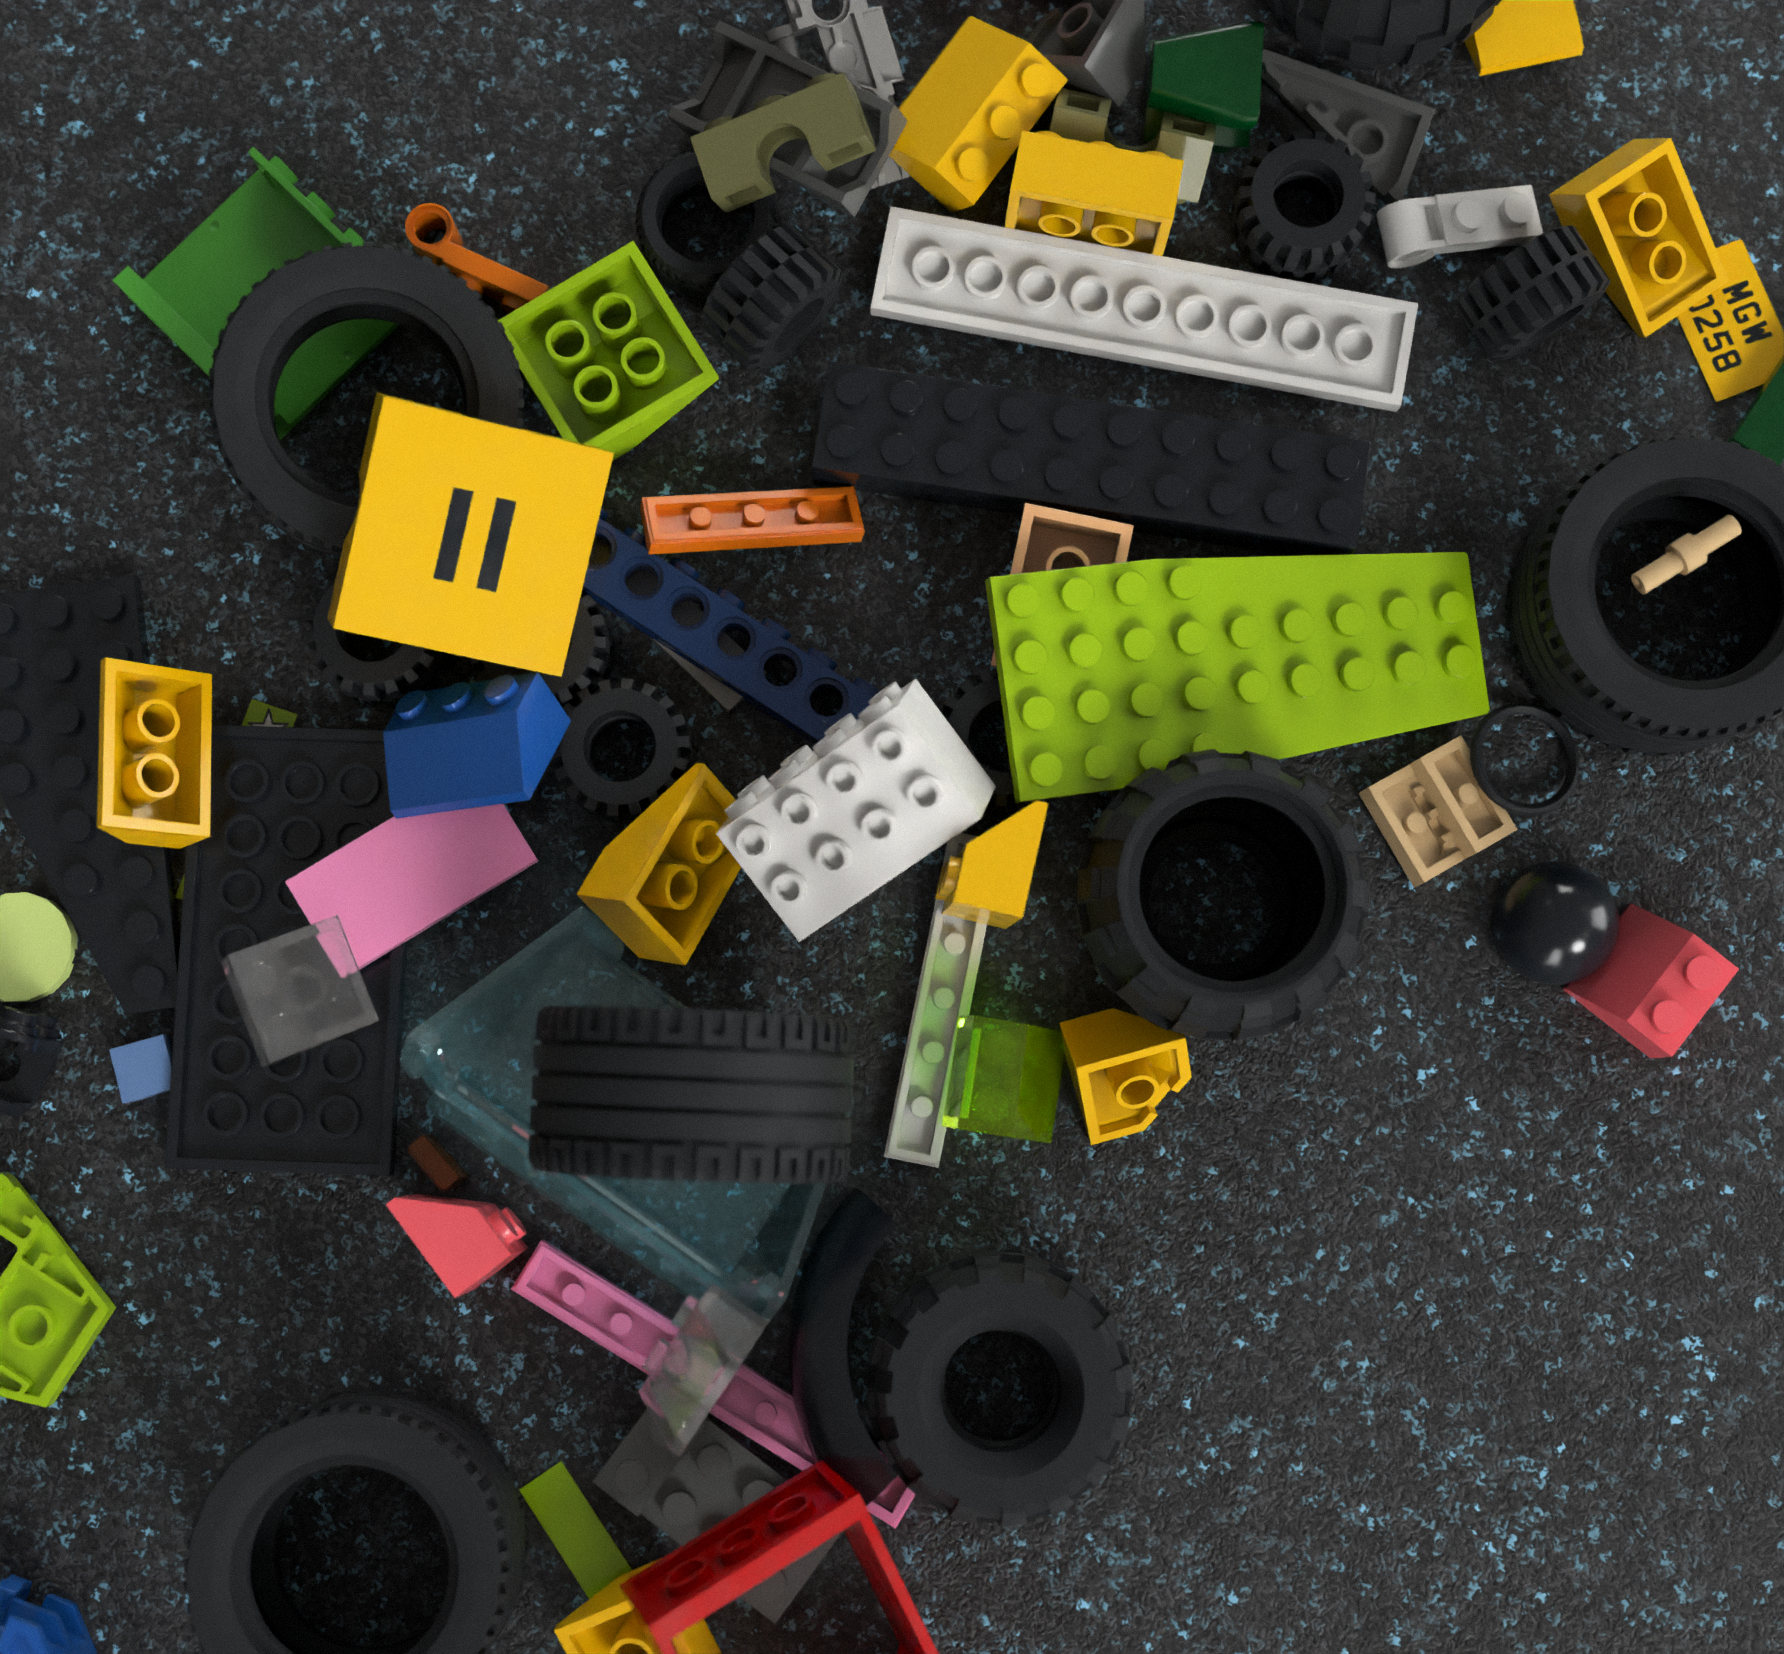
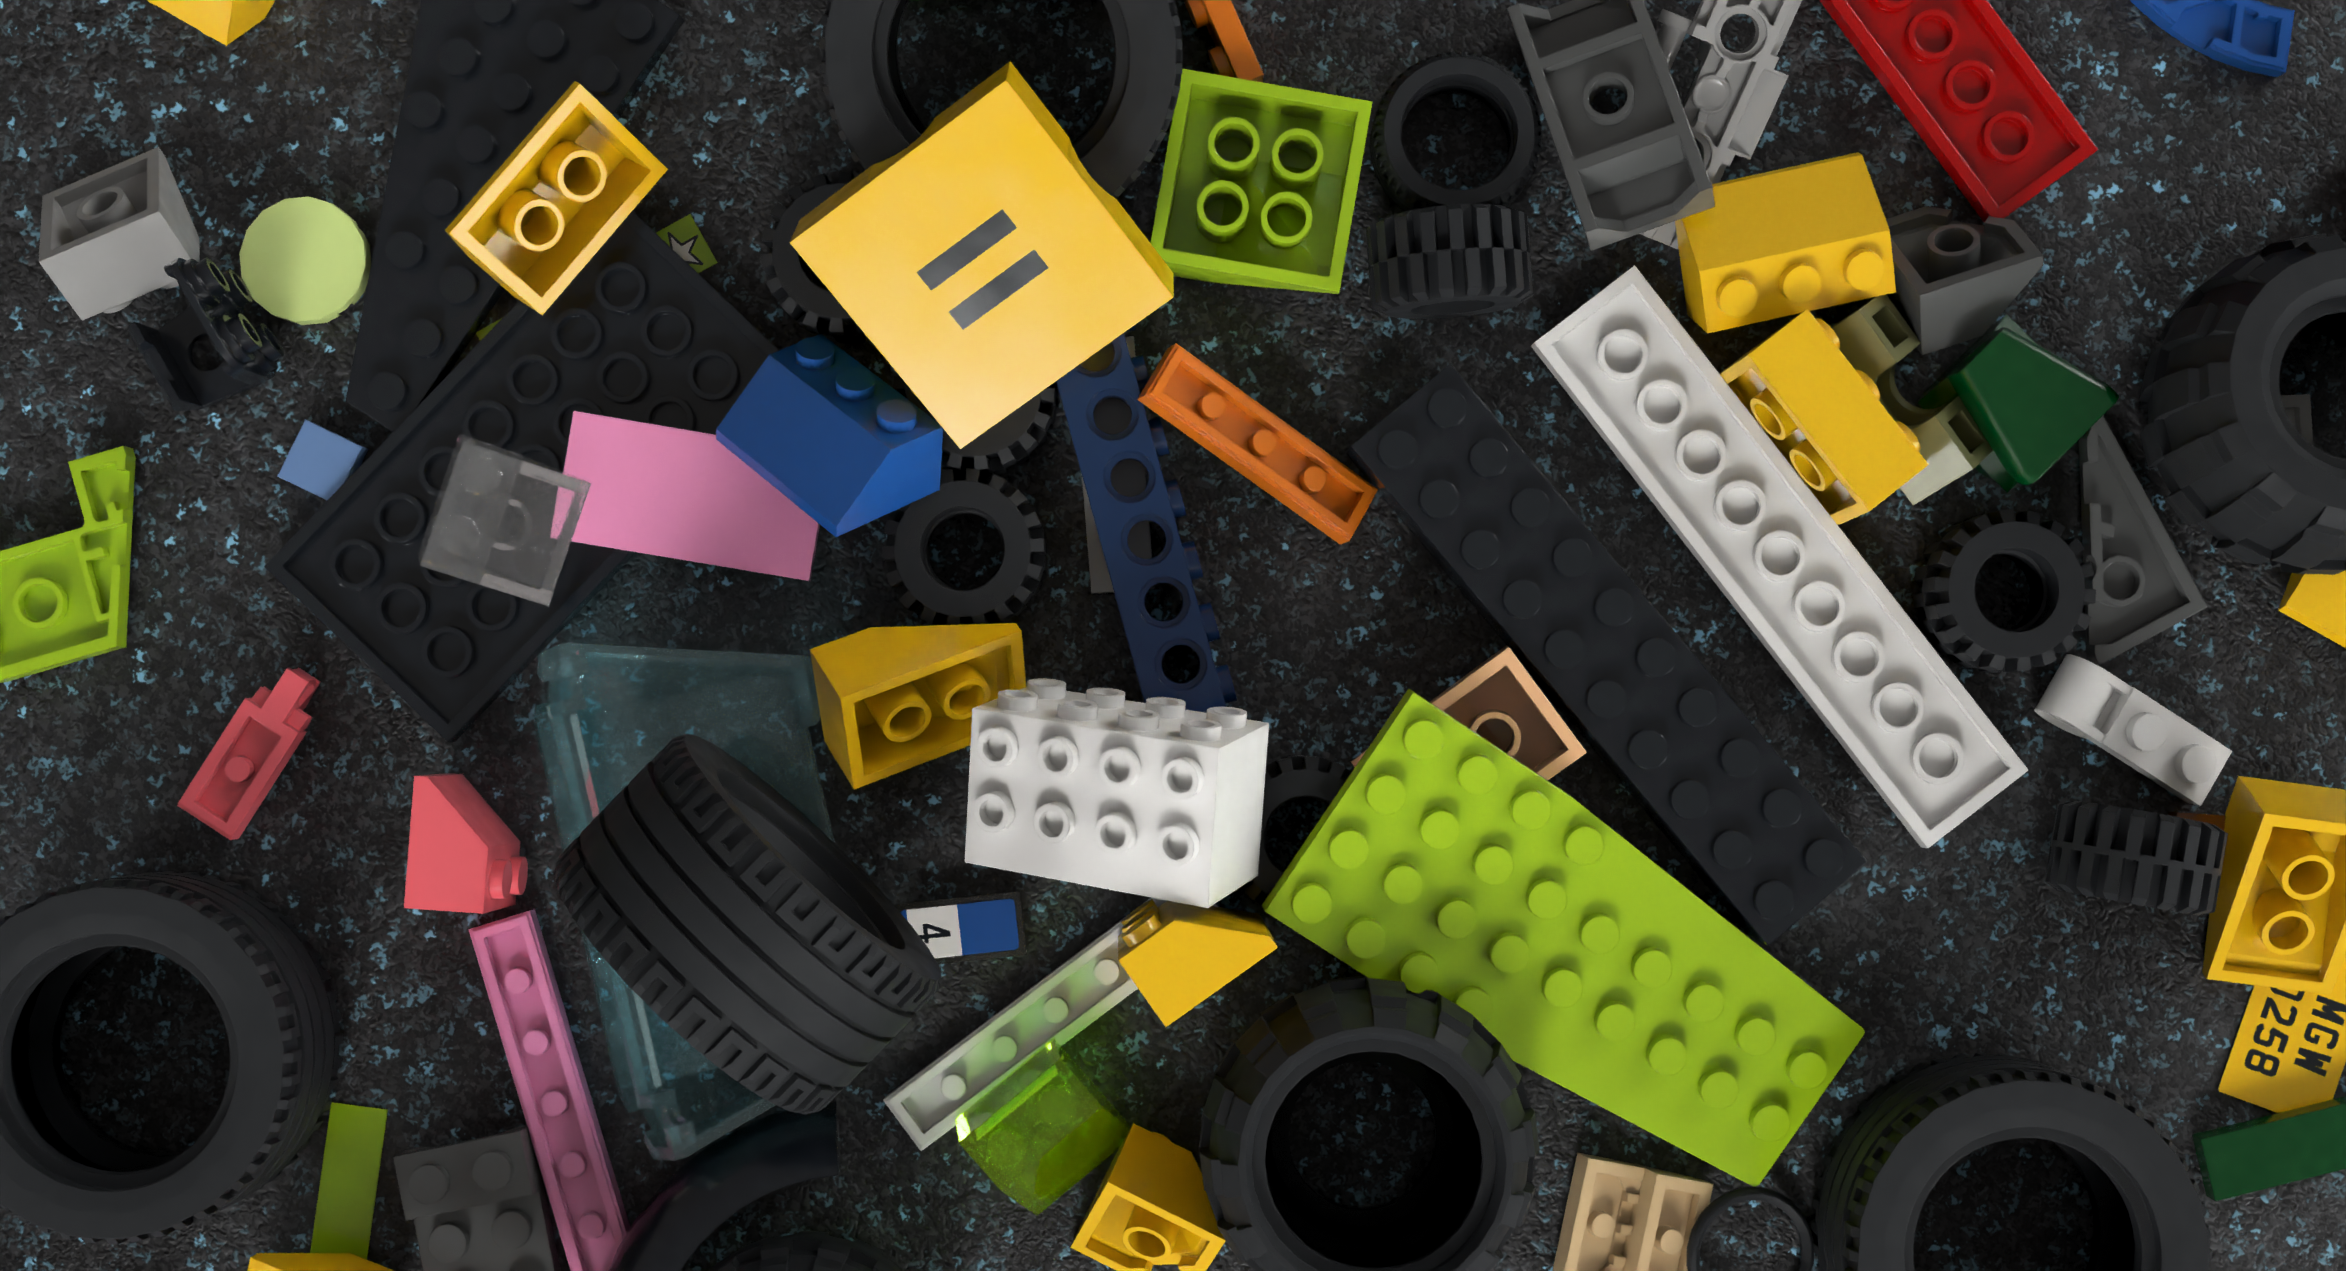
camera: 45 degrees right, 5 degrees up
(263, 1303) = (250, 755): none -> coral hinge
(437, 1162) = (498, 767): reddish brown tile -> none
(697, 1363) = (563, 1145): clear slope -> none
(739, 150) = (1533, 106): olive arch -> none
(844, 987) = (969, 926): none -> tile
(1686, 554) = (2045, 1227): tan bar -> none

